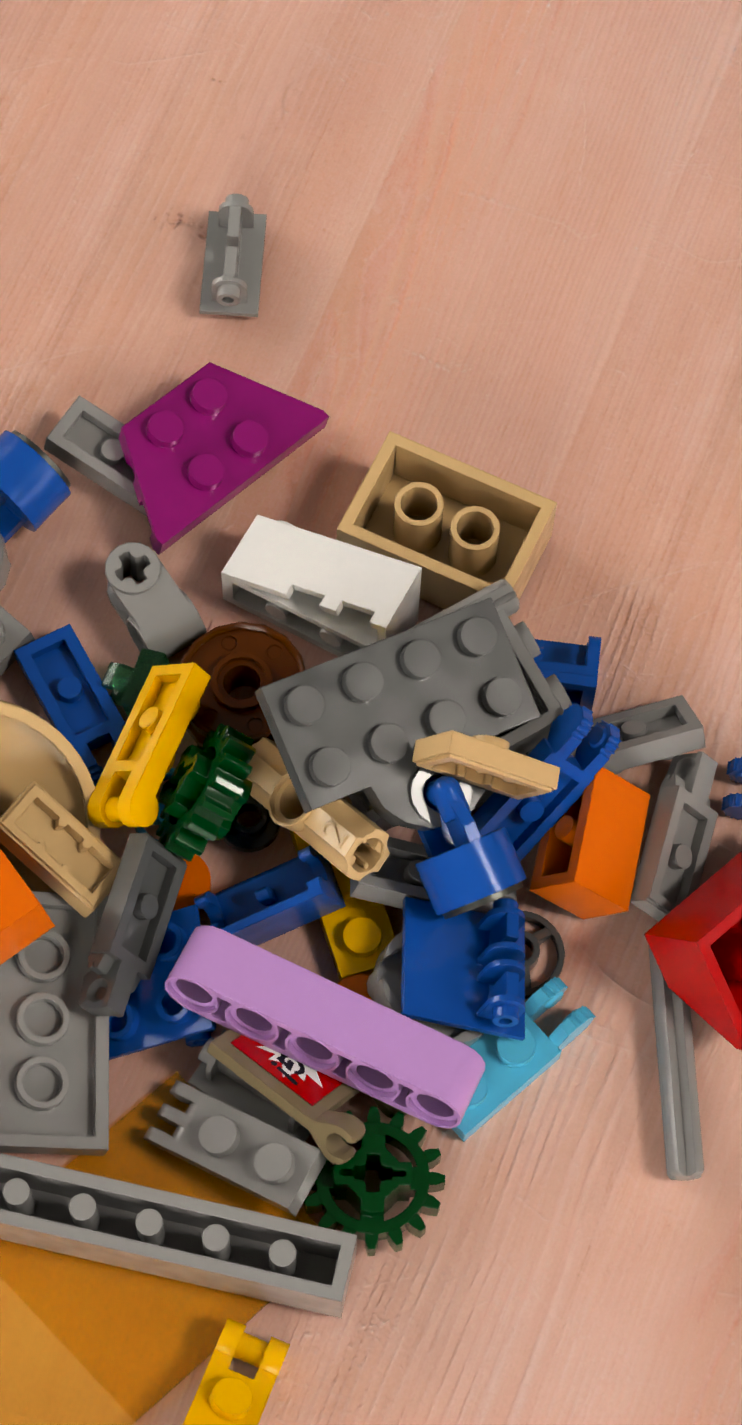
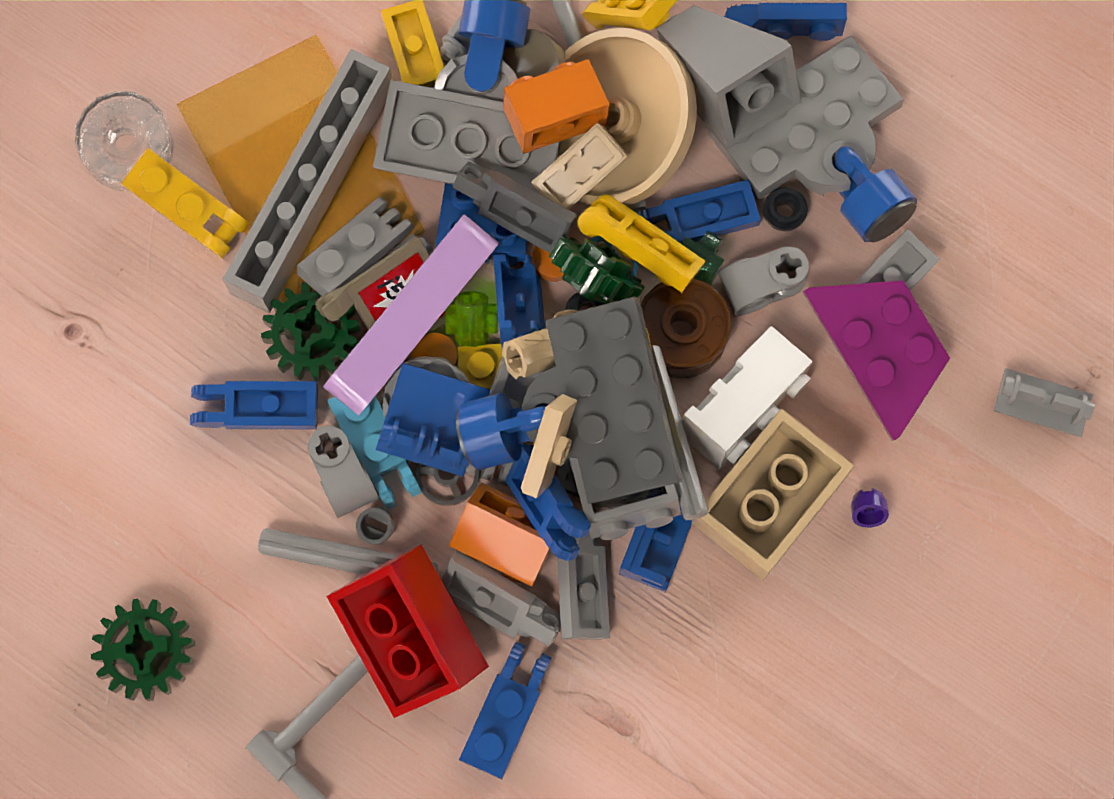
camera: 105 degrees right, 10 degrees up
(38, 589) = (788, 197): none -> black plate
(306, 948) = (471, 319): none -> clear neon green gear
(424, 426) = (869, 517): none -> dark purple hinge
(497, 1227) = (259, 405): none -> blue hinge
(568, 1082) = (343, 477): none -> light grey piece
(633, 1025) = (373, 534): none -> dark grey hinge

